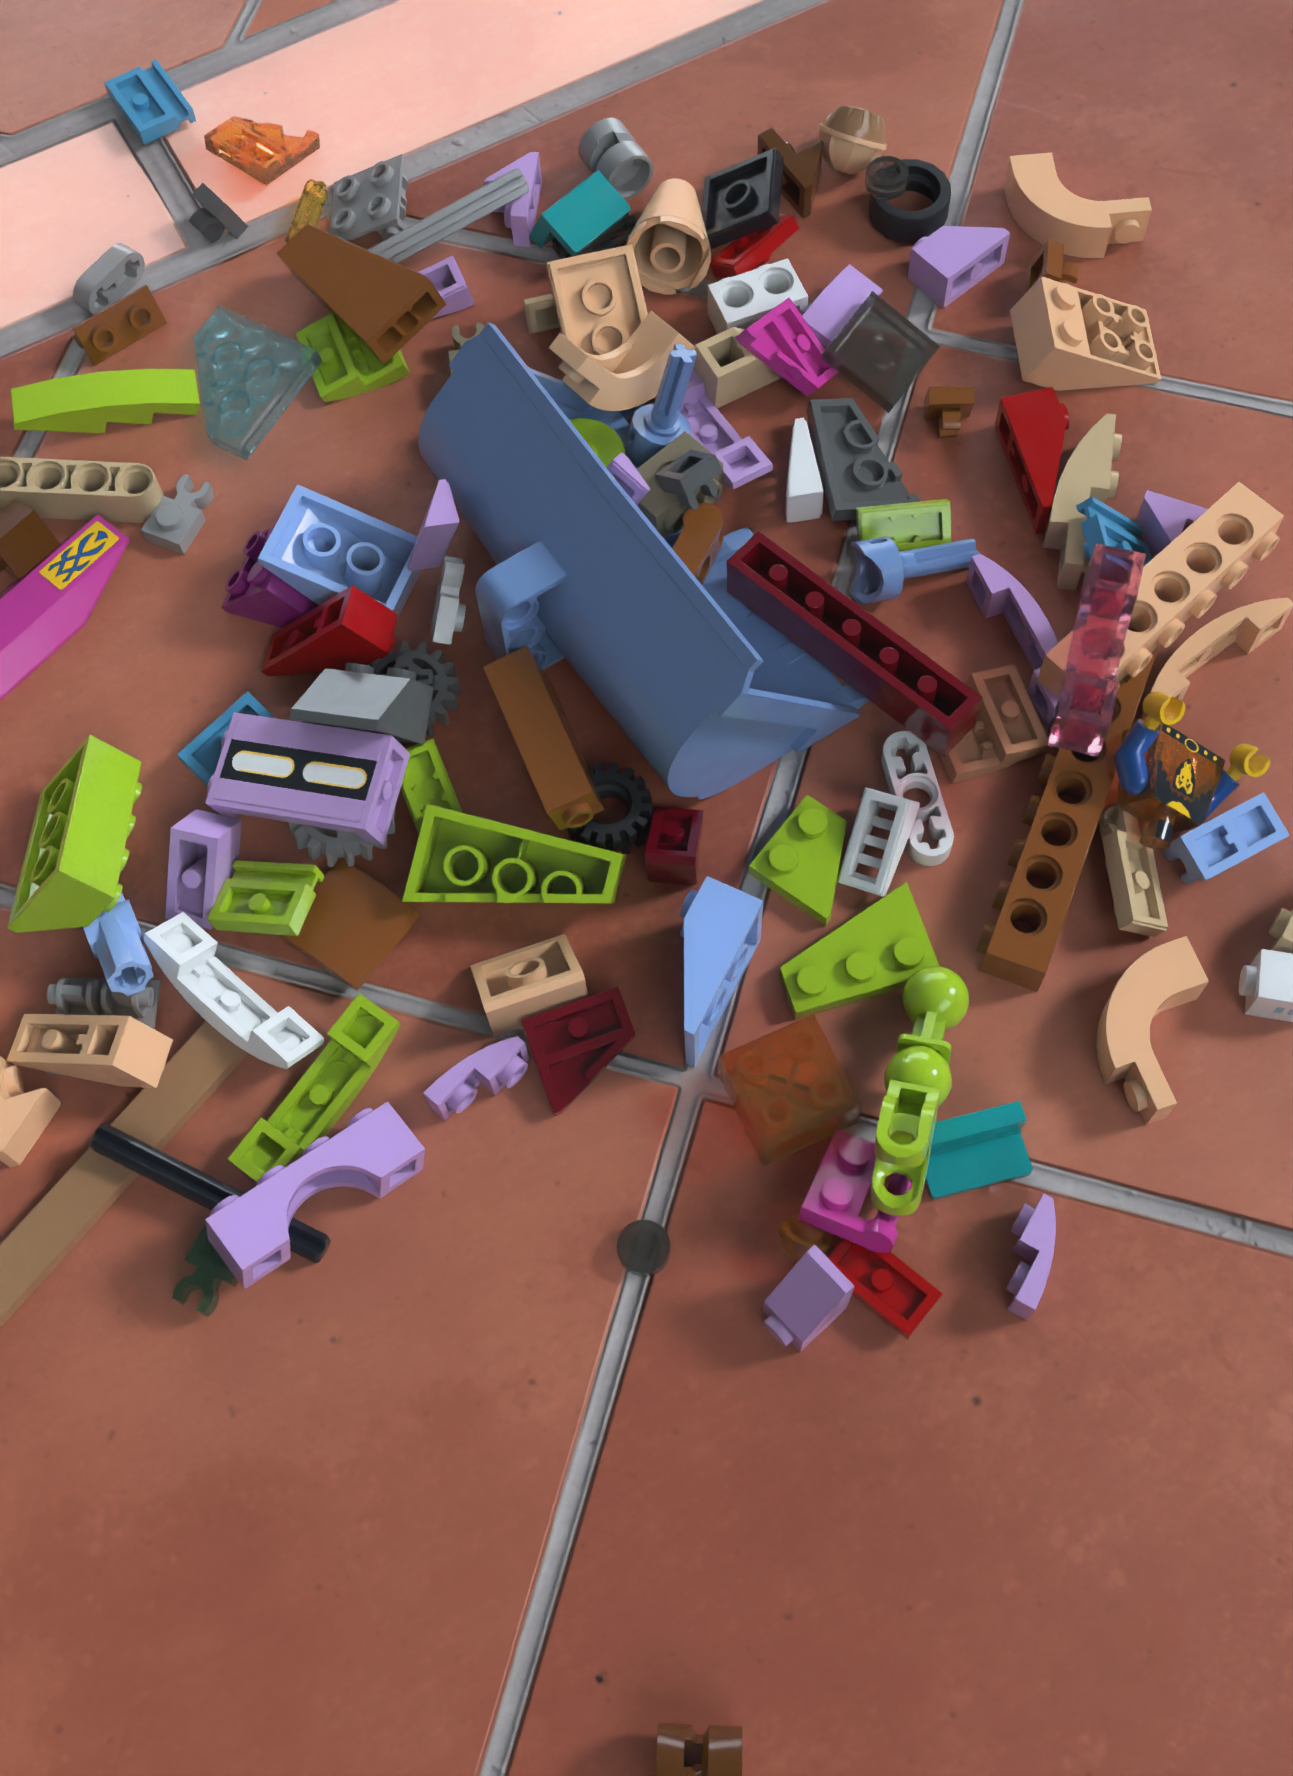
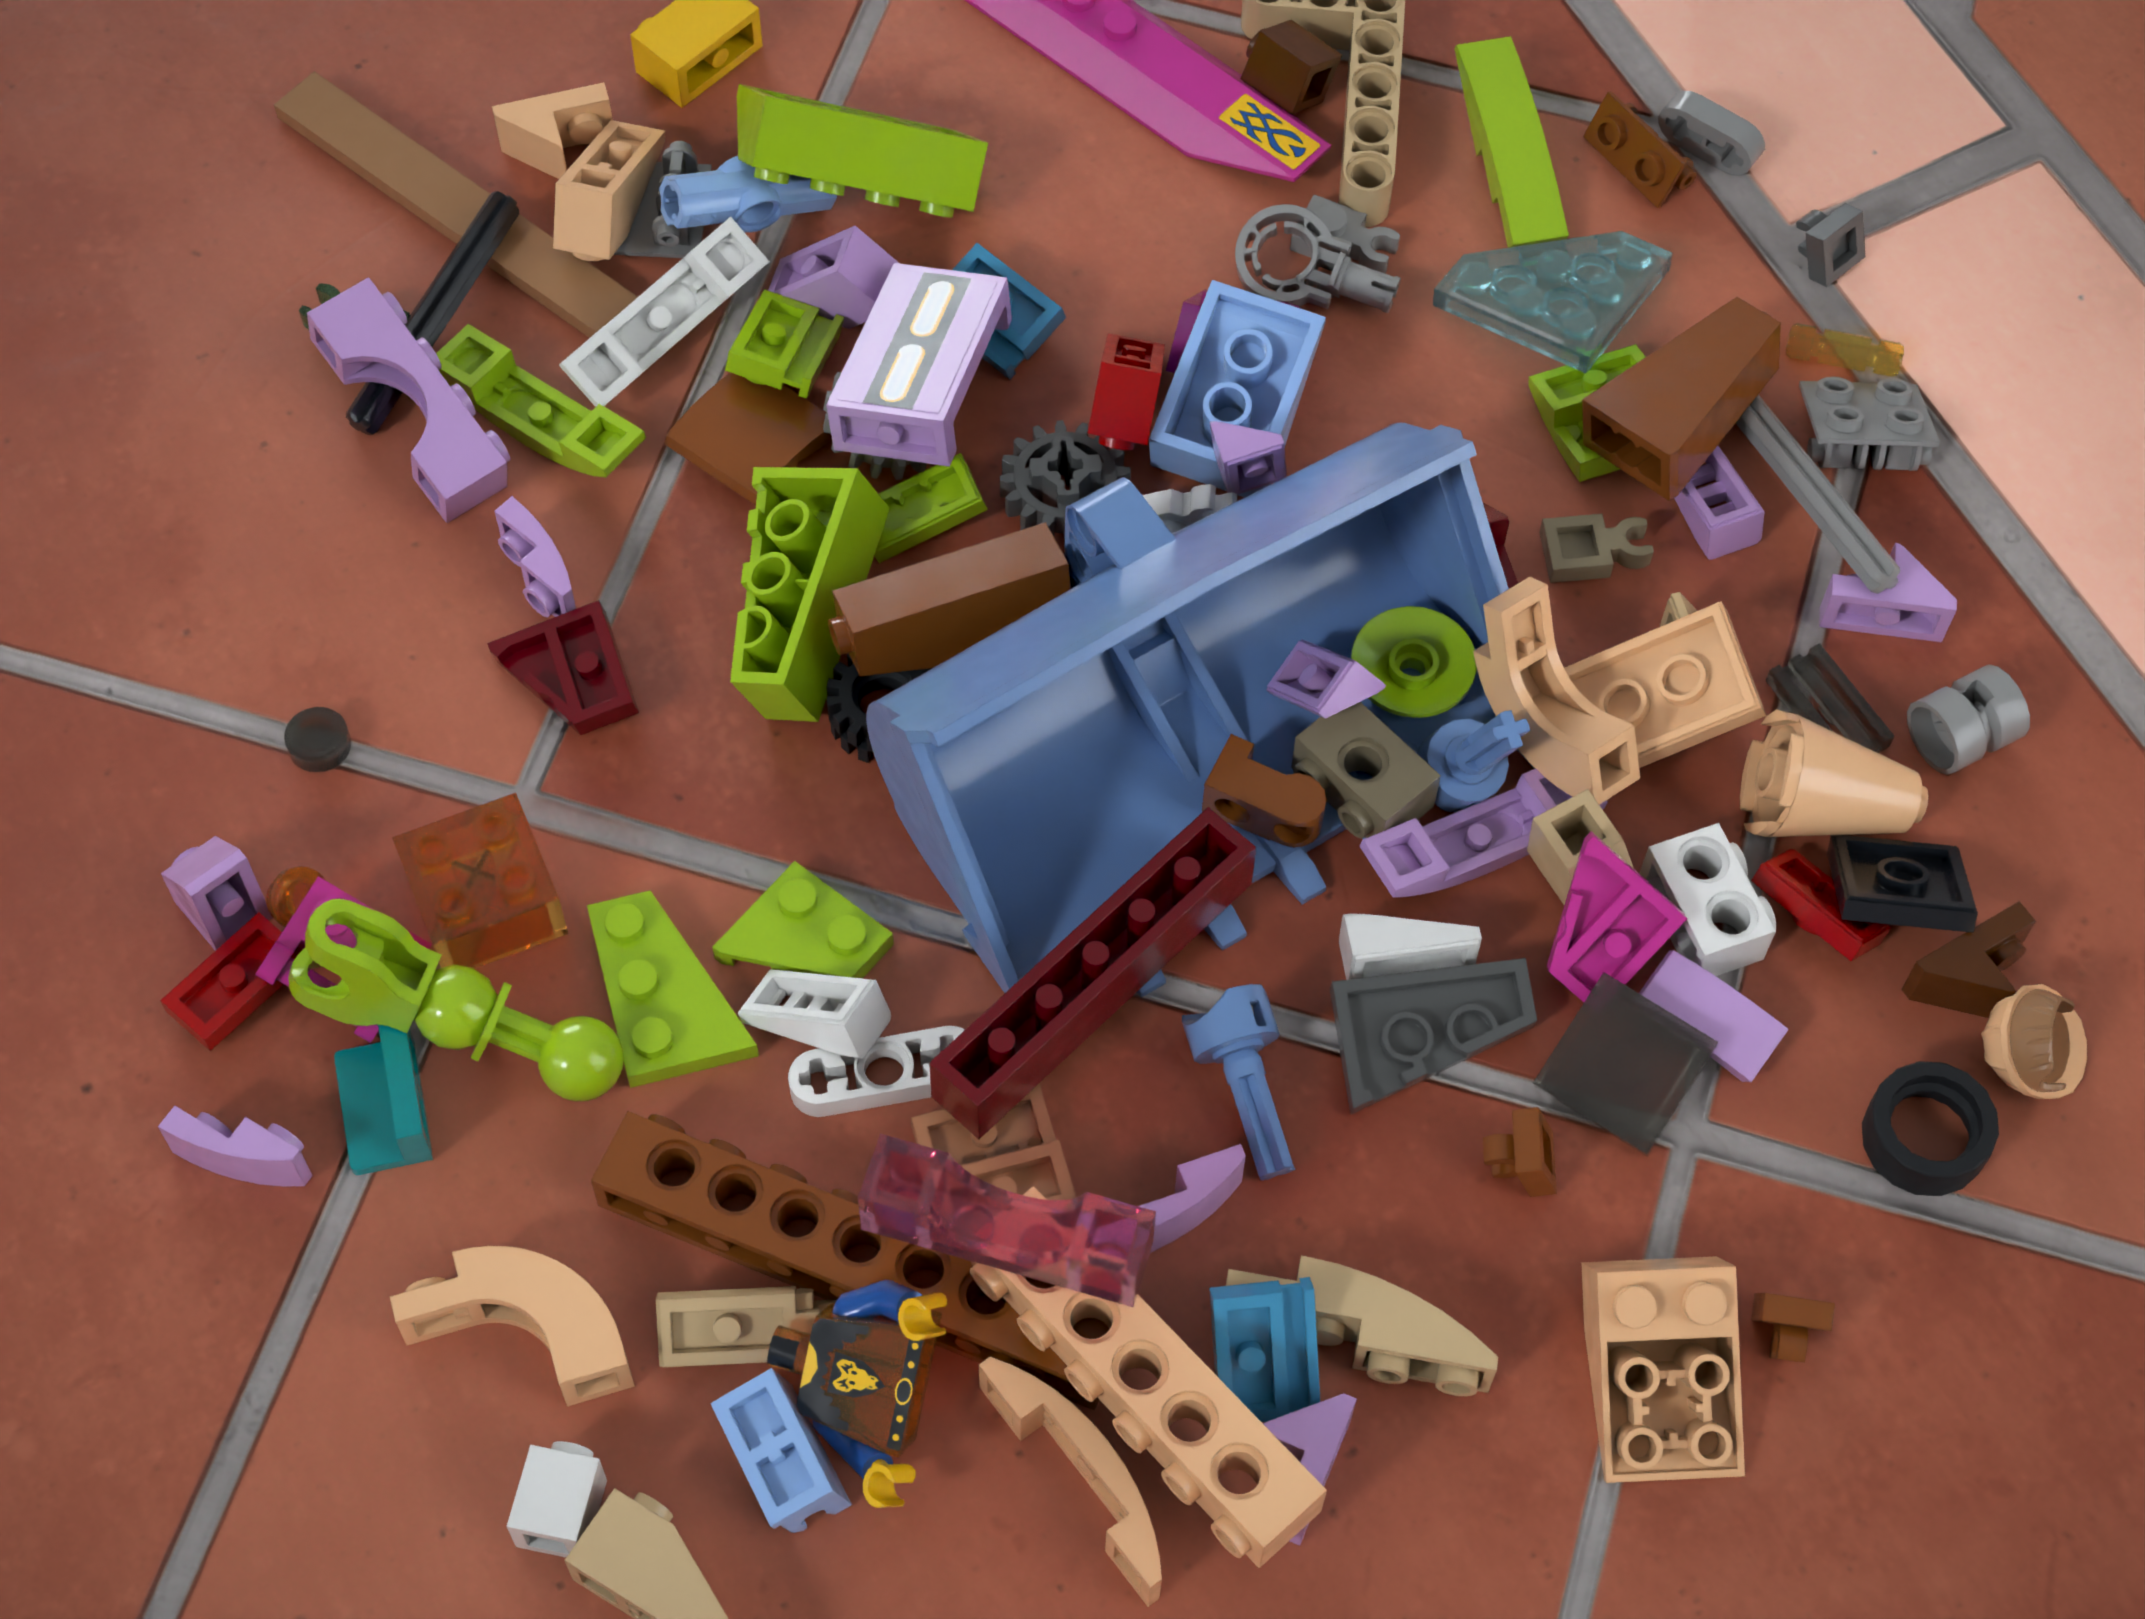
camera: 85 degrees right, 5 degrees down
(149, 102) = (2032, 157): dark azure plate -> none
(216, 523) = (1327, 252): none -> light grey pin
(259, 148) = (1961, 289): clear orange wing -> none
(368, 702) = (1003, 406): dark grey slope -> none
(528, 983) = (656, 615): light nougat slope -> none
(581, 215) = (1852, 674): teal panel -> none
(674, 846) = (822, 765): dark red slope -> none
(689, 473) = (1348, 764): dark grey tile -> none
(719, 941) = (641, 791): light blue slope -> none
(886, 177) = (1946, 1077): clear smoke tile -> none
(907, 524) = (1312, 1077): lime plate -> none
(956, 260) = (1808, 1184): lavender slope -> none
(1032, 437) = (1461, 1267): red slope -> none
(1054, 213) = (1942, 1318): light nougat arch -> none

